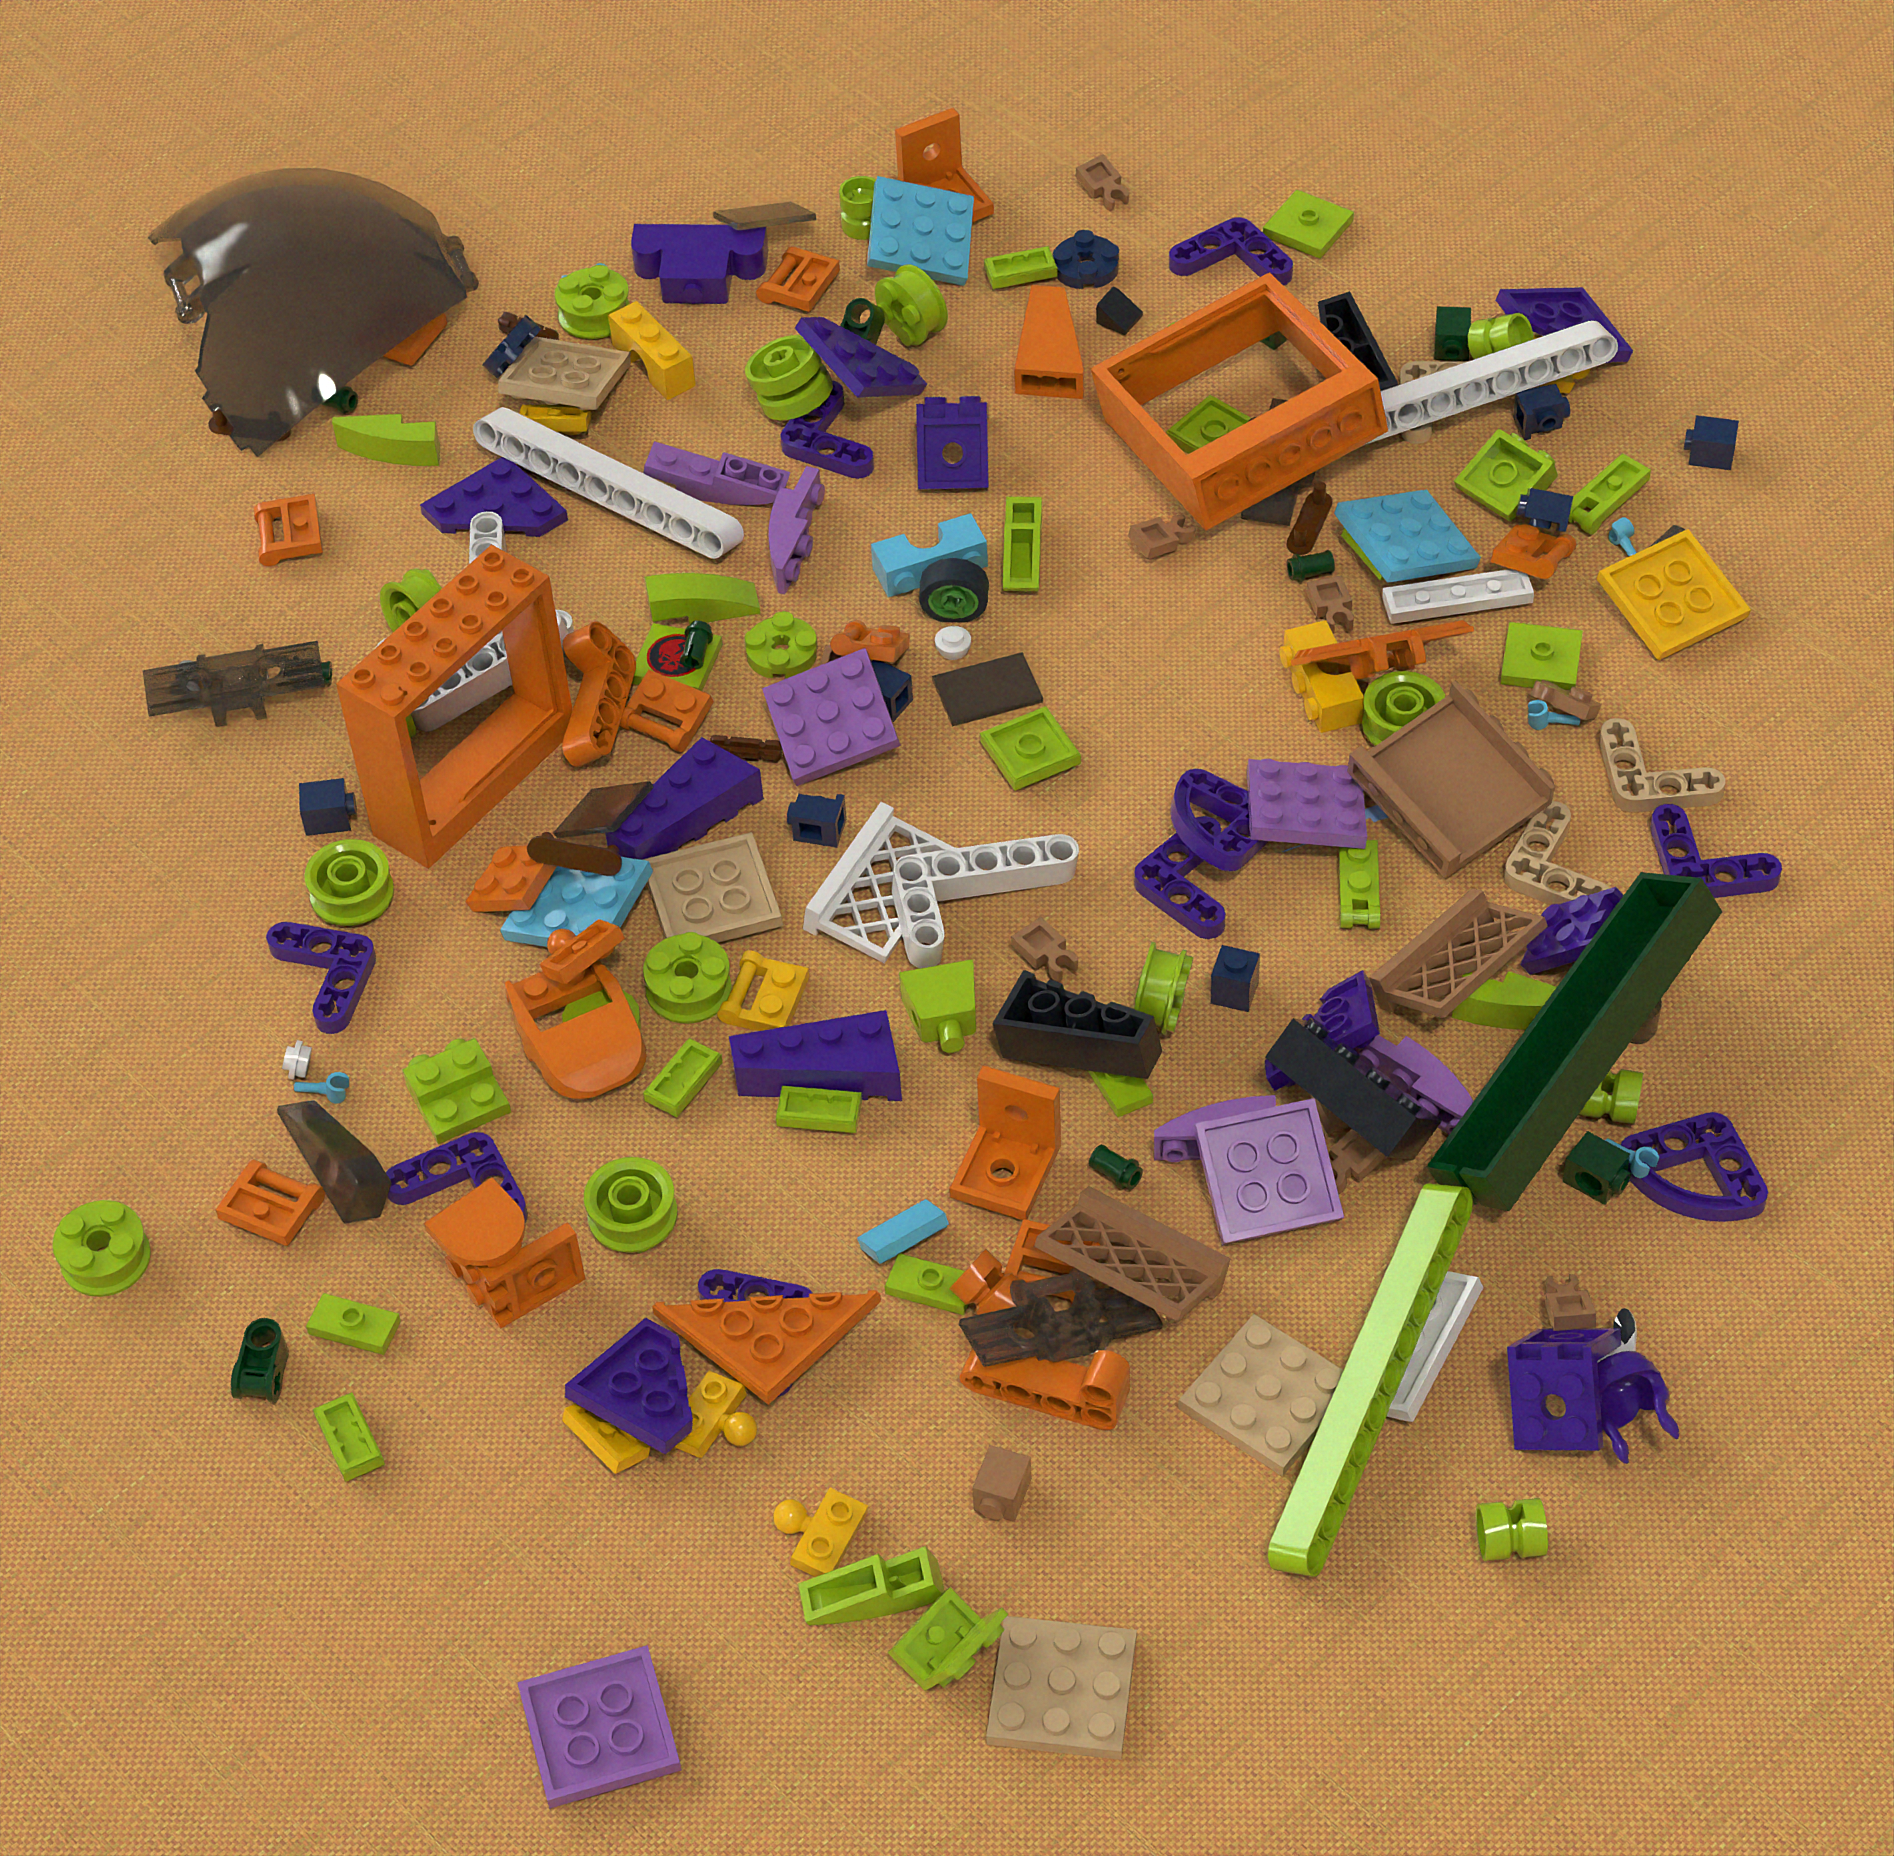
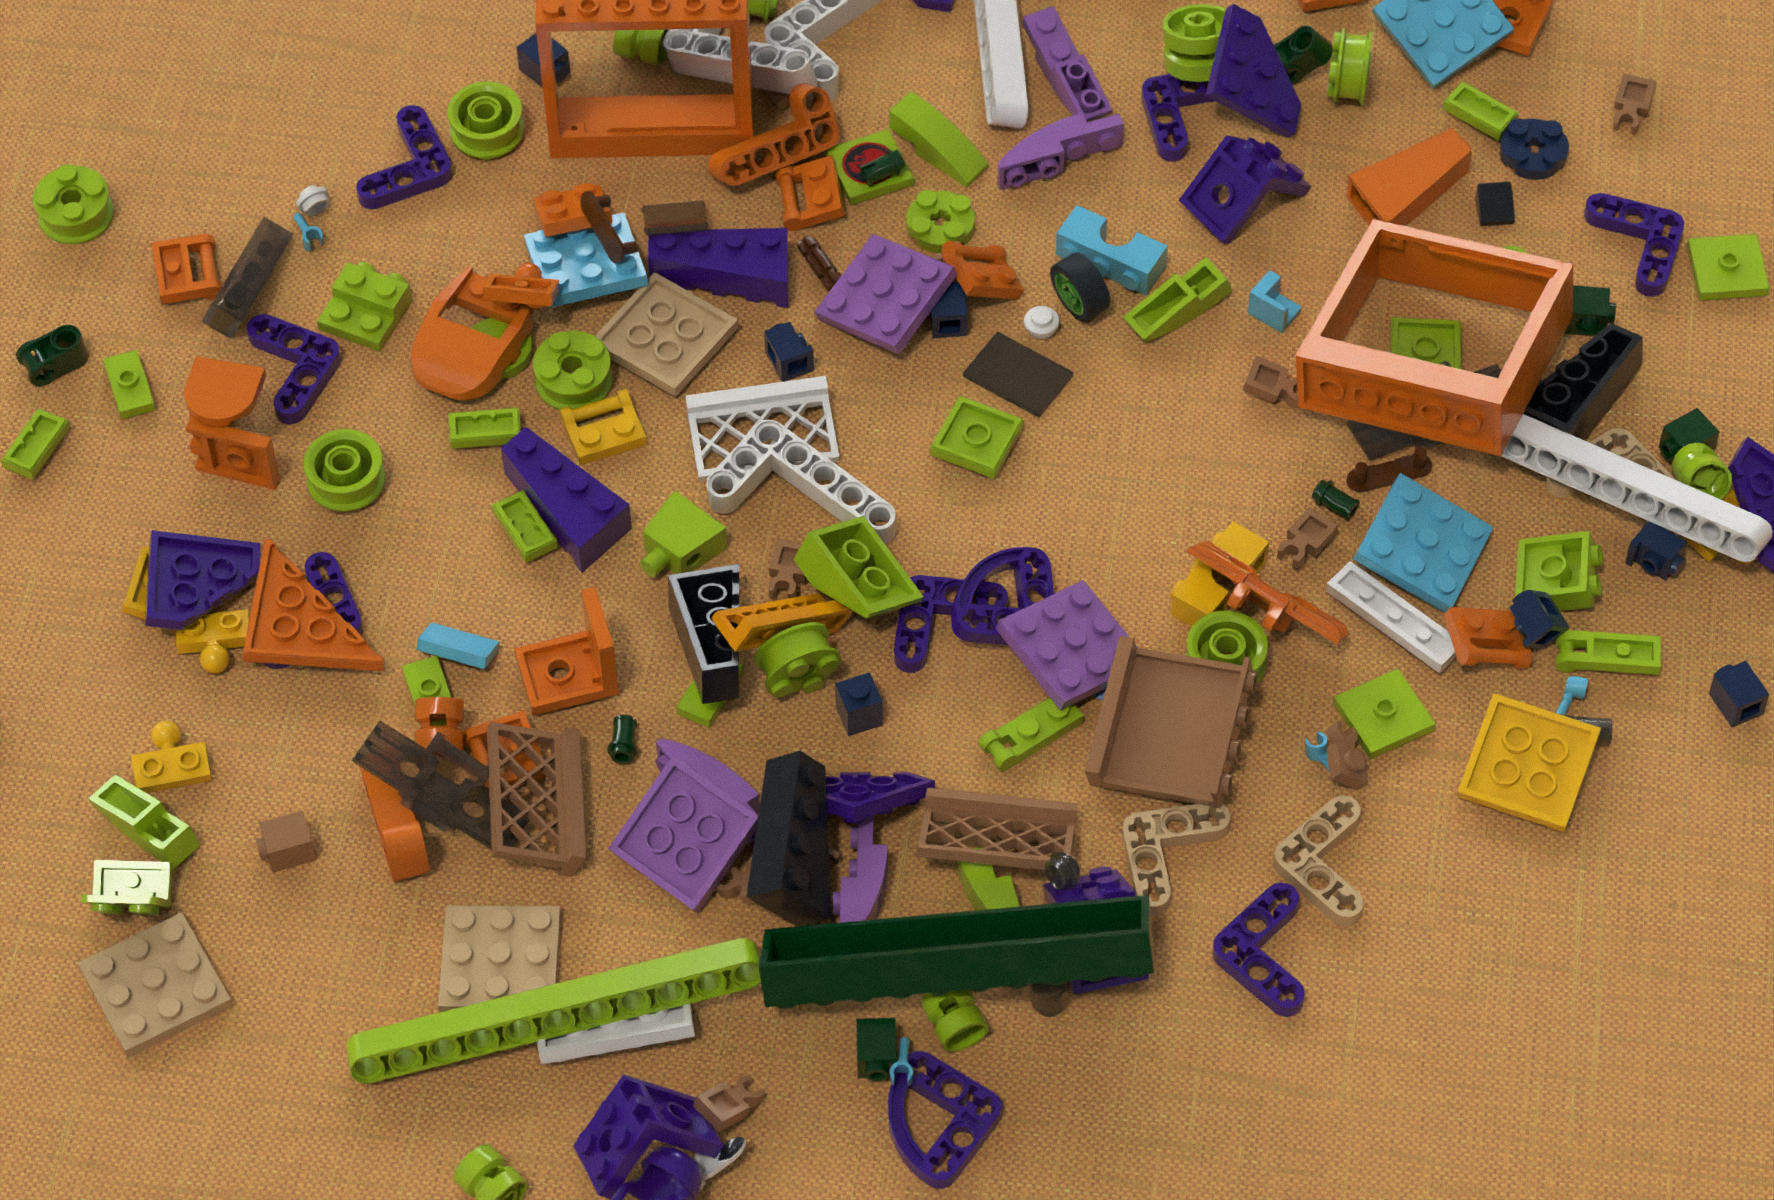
camera: 50 degrees right, 5 degrees up
(1082, 496) = (1270, 306): none -> medium azure panel
(1105, 895) = (856, 568): none -> lime slope
(1115, 972) = (765, 620): none -> light orange fence
(1553, 922) = (1062, 871): none -> clear smoke plate

